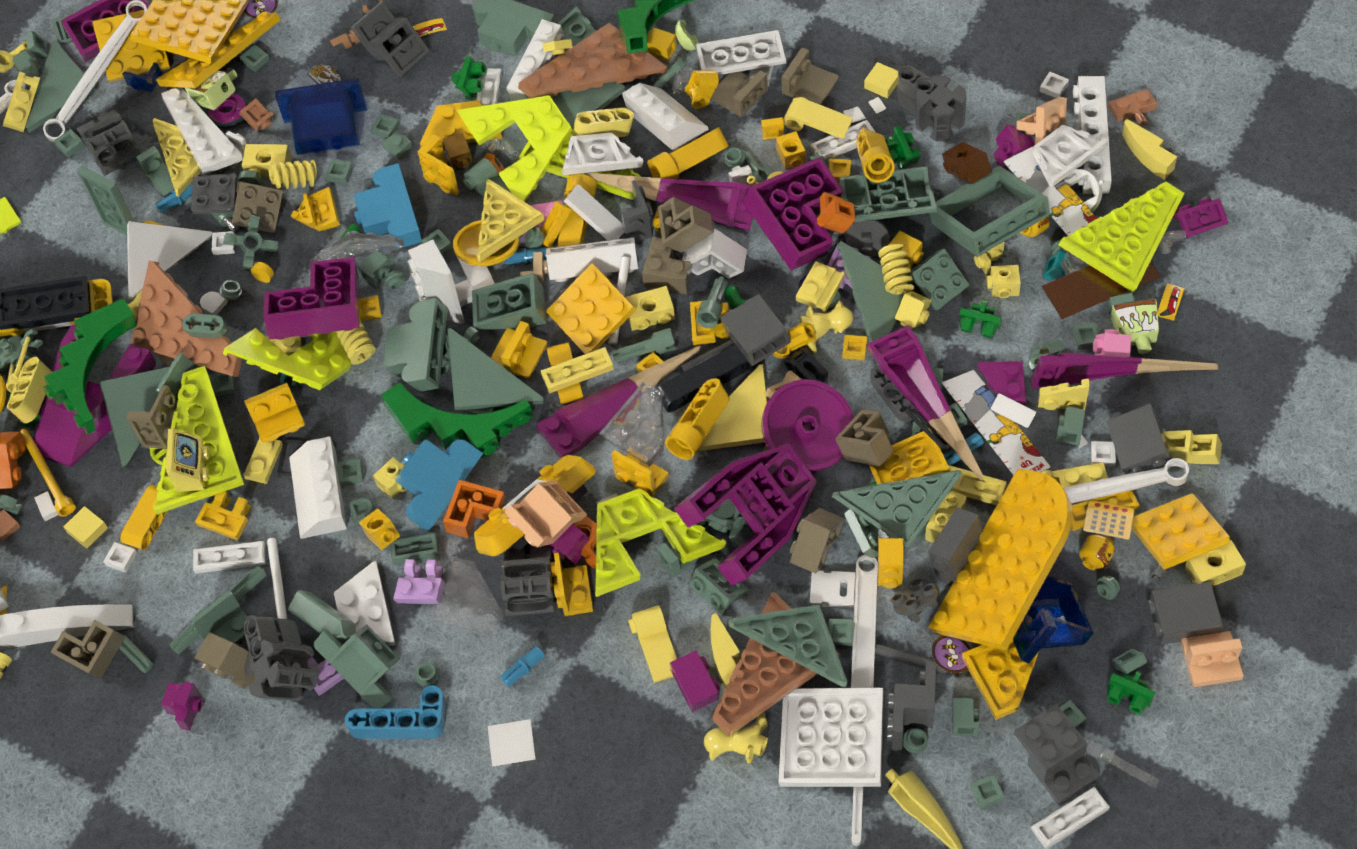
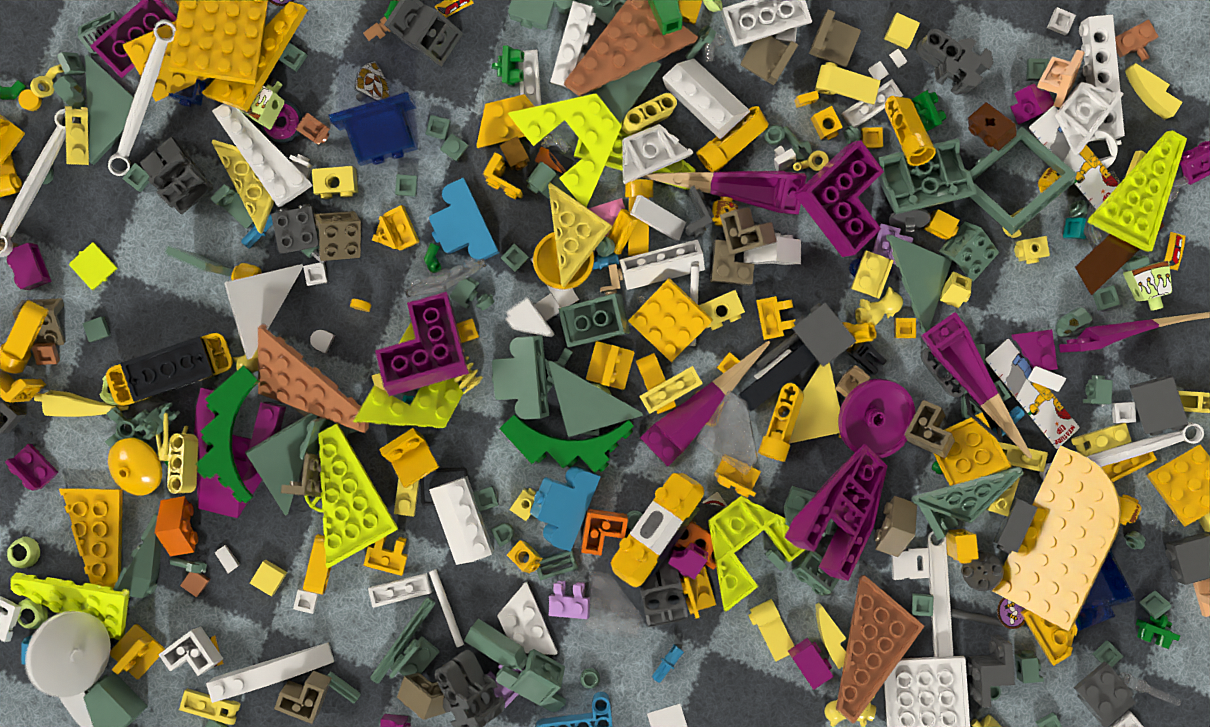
camera: 15 degrees left, 30 degrees up
(63, 504) = (242, 558): yellow piece -> none
(186, 461) = (347, 529): light yellow slope -> none
(204, 325) = (328, 398): sand green beam -> none
(230, 290) = (335, 327): sand green plate -> none
(251, 177) = (324, 203): sand green tile -> none
(267, 245) = (344, 286): sand green pin -> none
(293, 174) = (364, 199): light yellow piece -> none
(545, 513) = (676, 557): light nougat bracket -> none
(557, 47) = (594, 33): light yellow plate -> none
(660, 342) = (736, 343): sand green piece -> none
(701, 87) = (736, 60): yellow piece -> none
(711, 309) = (779, 313): sand green piece -> none
(733, 296) = (794, 290): green arm -> none
(798, 635) = (892, 619): sand green tile -> none
(835, 213) = (883, 209): orange brick -> none
(894, 269) = (941, 255): light yellow piece -> none
(989, 322) = (1021, 294): green hips -> none
(1064, 396) = (1096, 366): light yellow wing -> none
(1108, 519) = (1135, 481): yellow sticker -> none
(1112, 344) = (1132, 311): bright pink brick -> none

